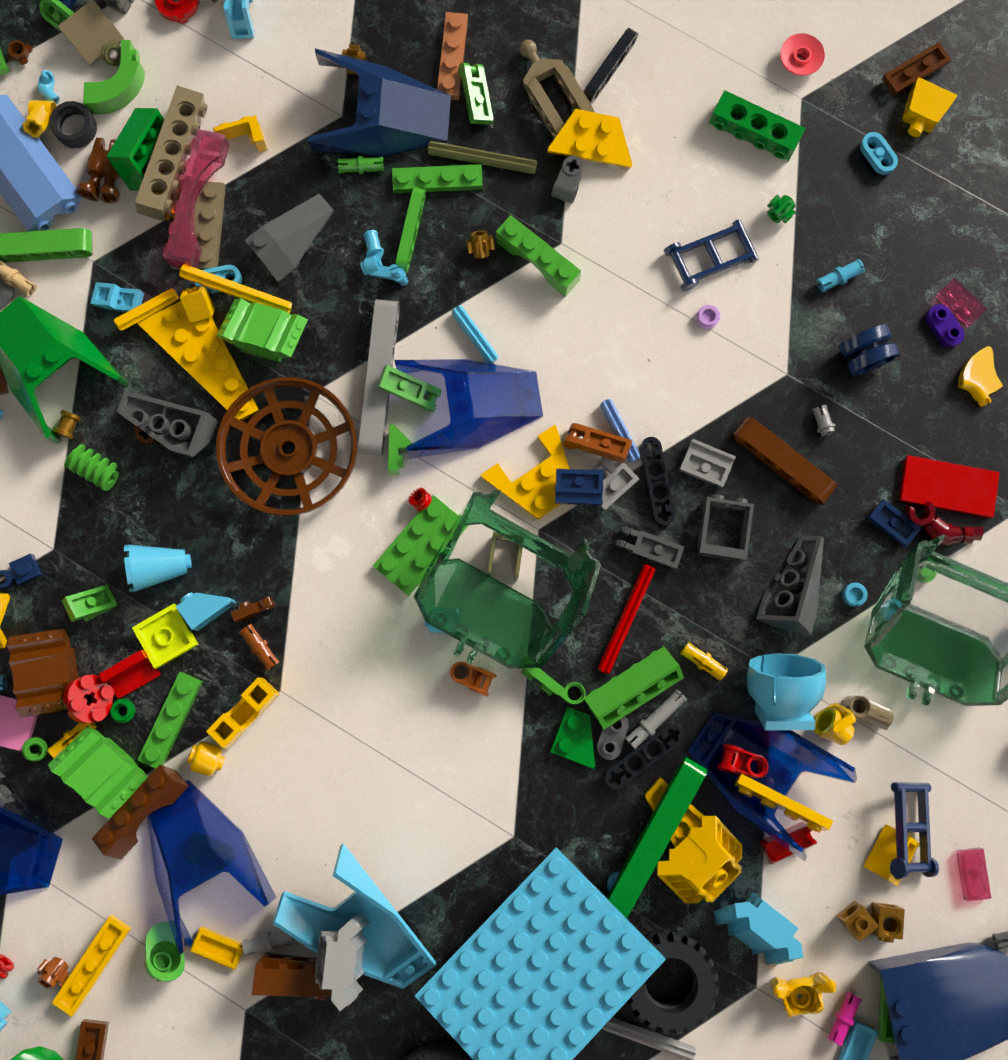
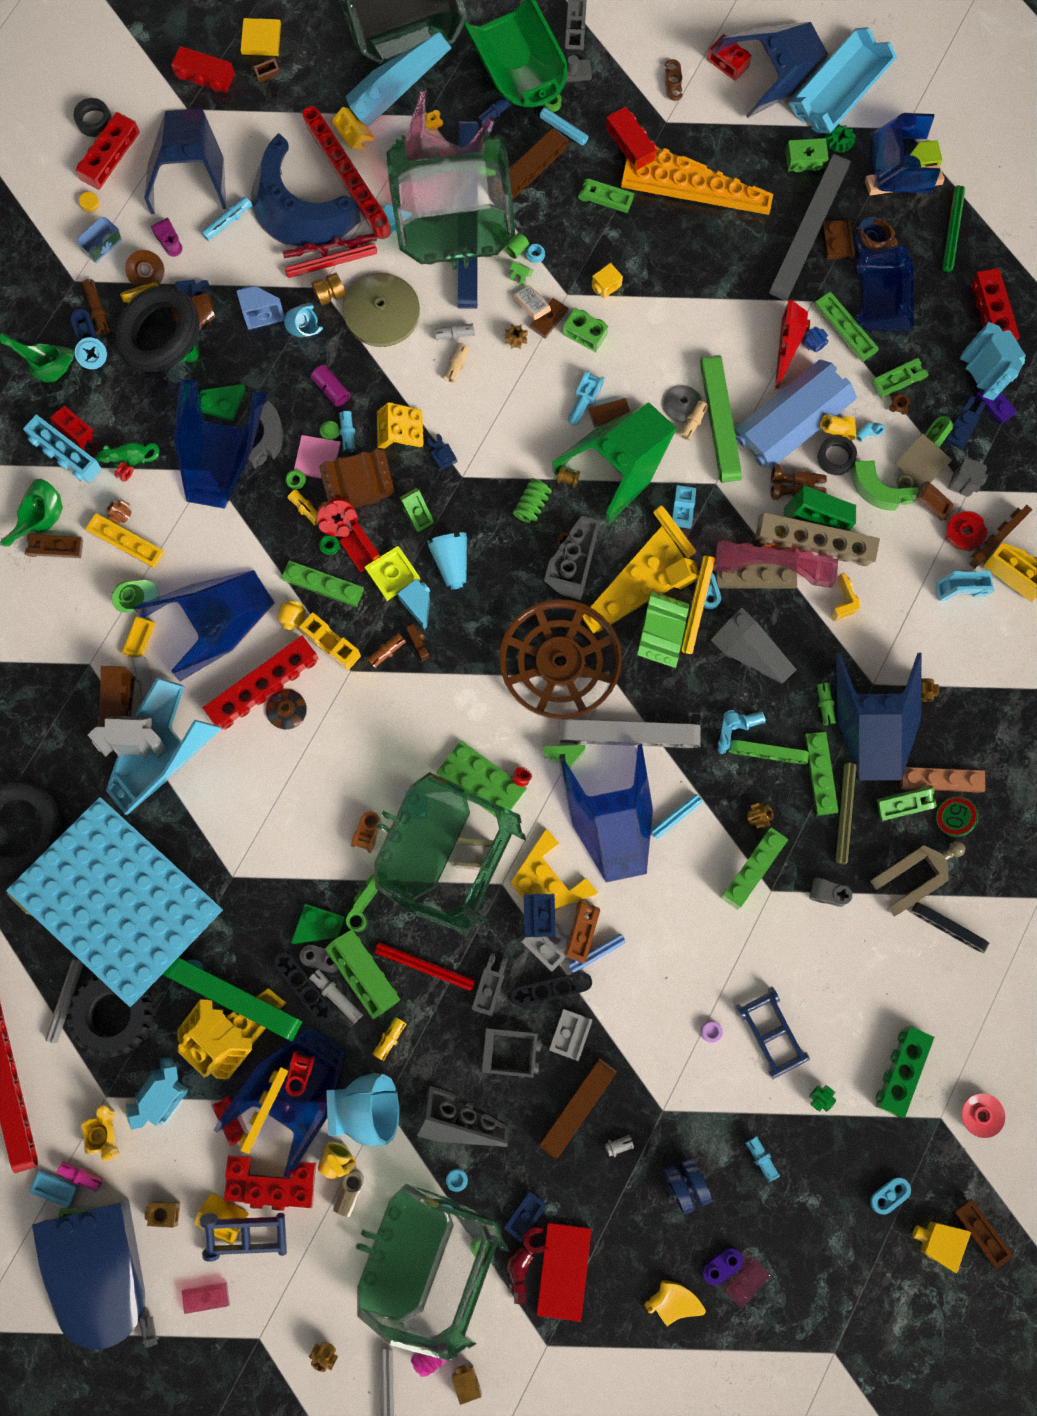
camera: 85 degrees right, 5 degrees down
(98, 771) = (278, 531): bright green slope -> none
(120, 831) = (264, 579): reddish brown arch -> none
(138, 26) = (934, 500): none -> reddish brown tile
(300, 832) = (264, 672): none -> red brick
(332, 766) = (286, 719): none -> dish
(408, 388) = (619, 759): bright green plate -> none
(494, 44) = (957, 816): none -> piece
(593, 138) = (872, 913): yellow wing -> none
(857, 921) = (163, 1185): pearl gold brick -> none
(862, 804) = (269, 1190): none -> red bracket

